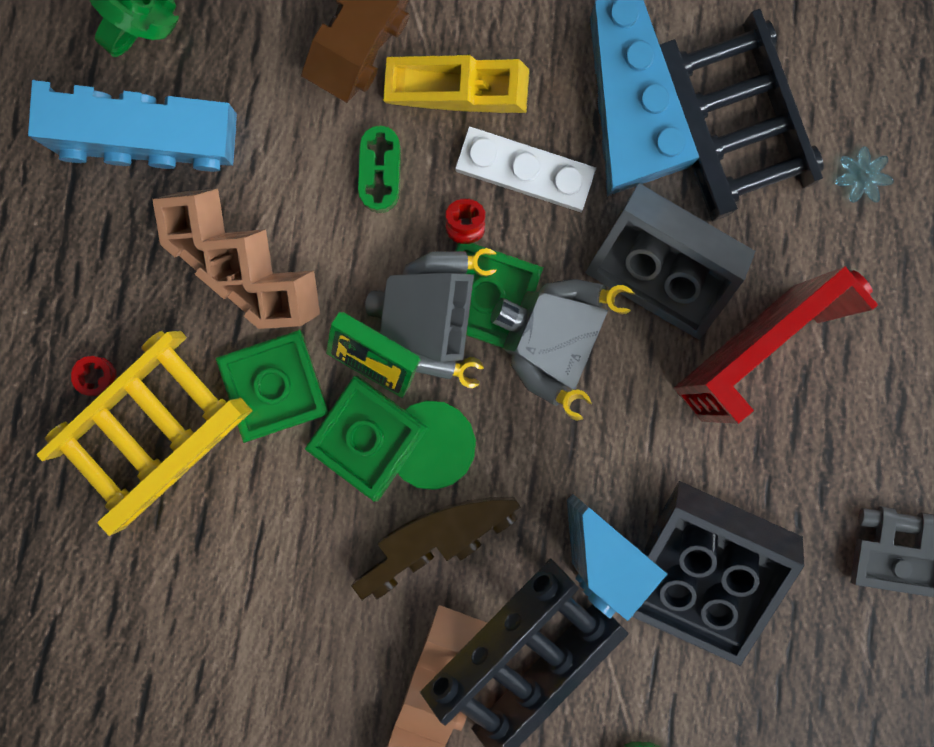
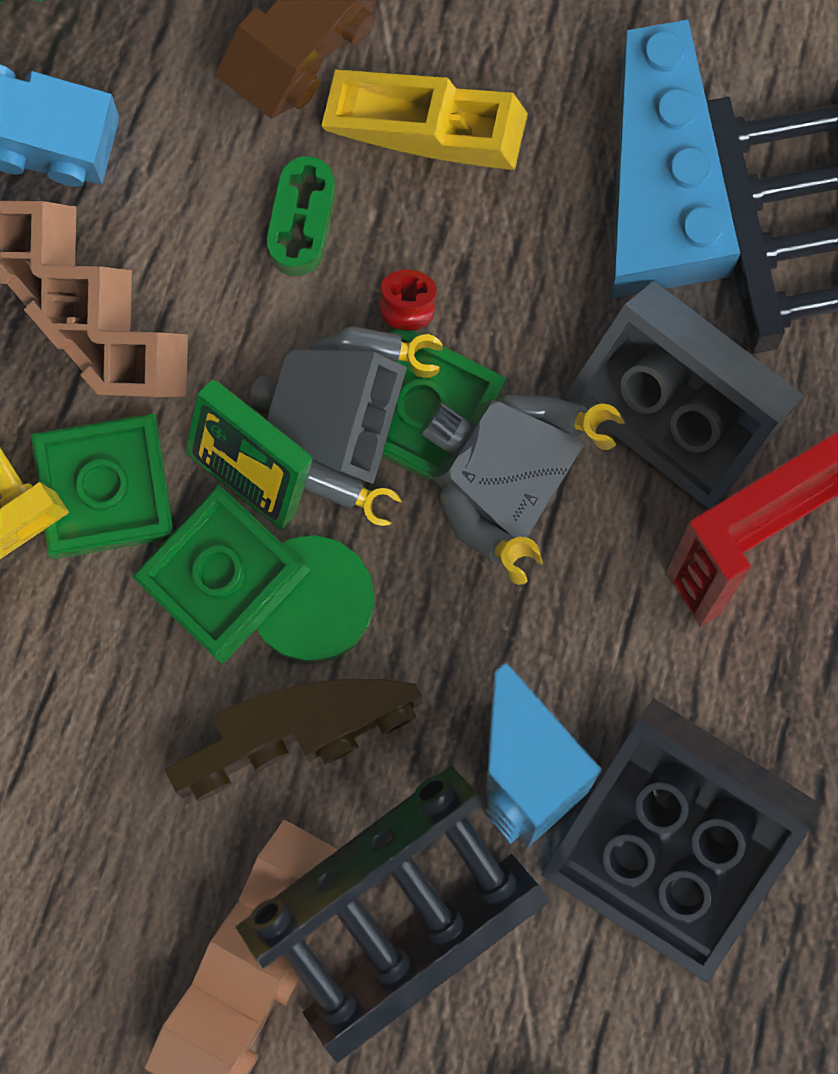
camera: 10 degrees right, 10 degrees down
(525, 169) = (502, 245): white plate -> none

